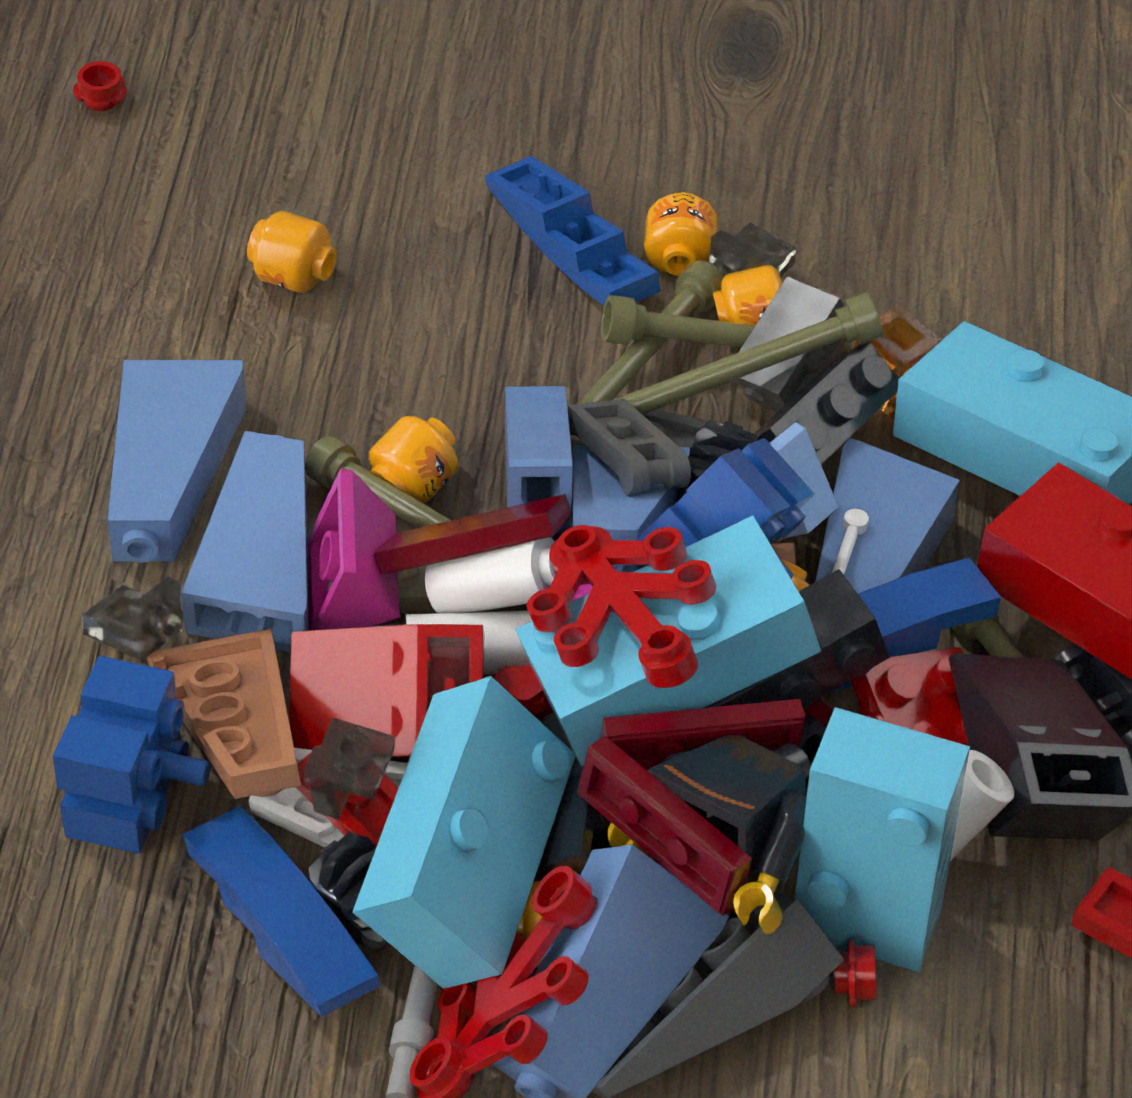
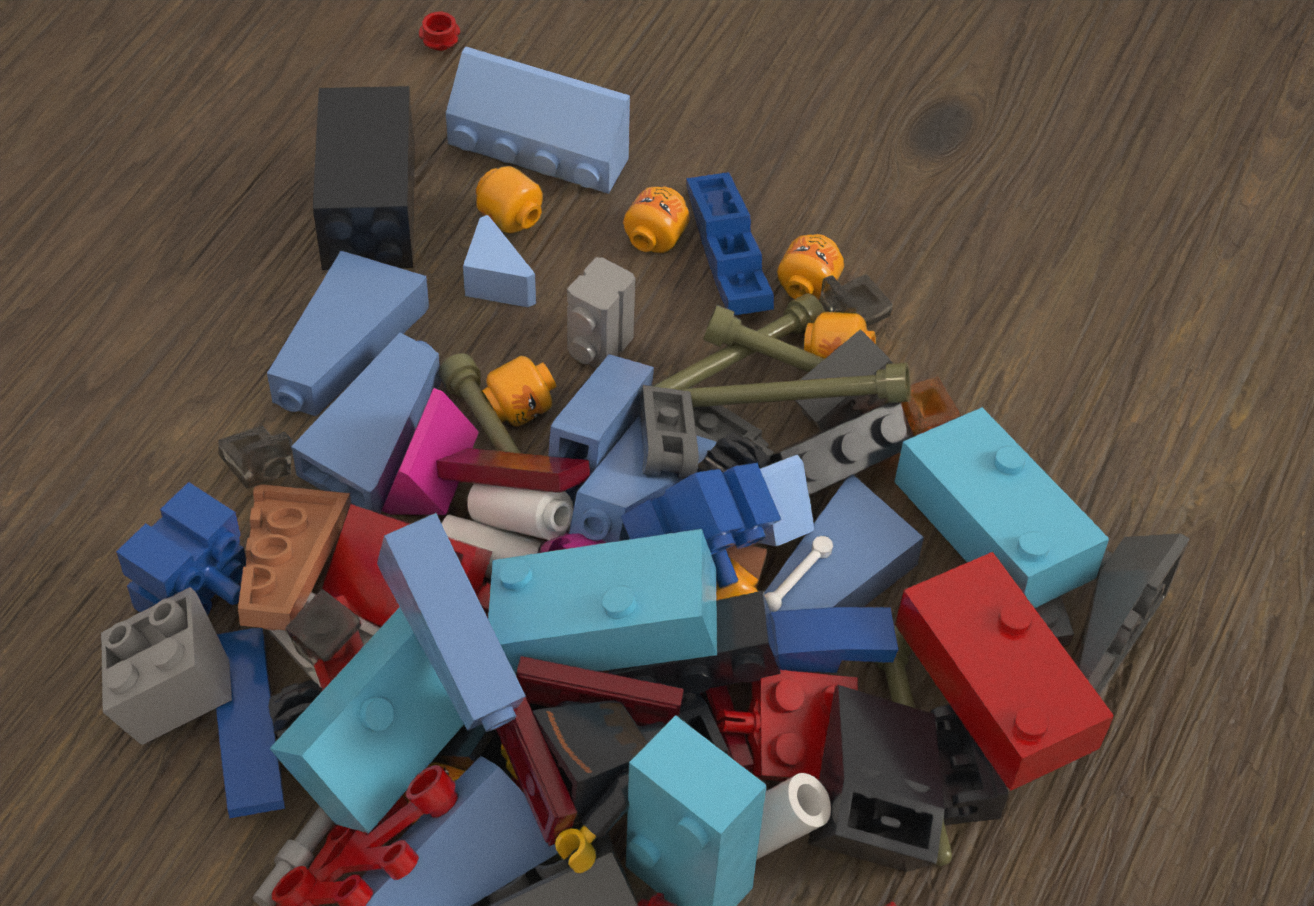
camera: 20 degrees right, 5 degrees up
(109, 266) = (365, 175): none -> black brick
(158, 876) = (163, 668): none -> light grey slope
(284, 151) = (539, 120): none -> light blue slope
(318, 333) = (496, 269): none -> light blue slope
(473, 345) = (600, 312): none -> light grey brick
(475, 226) = (656, 219): none -> light orange head
(522, 693) = (450, 623): none -> medium blue slope
(586, 557) = (568, 520): red plant -> none

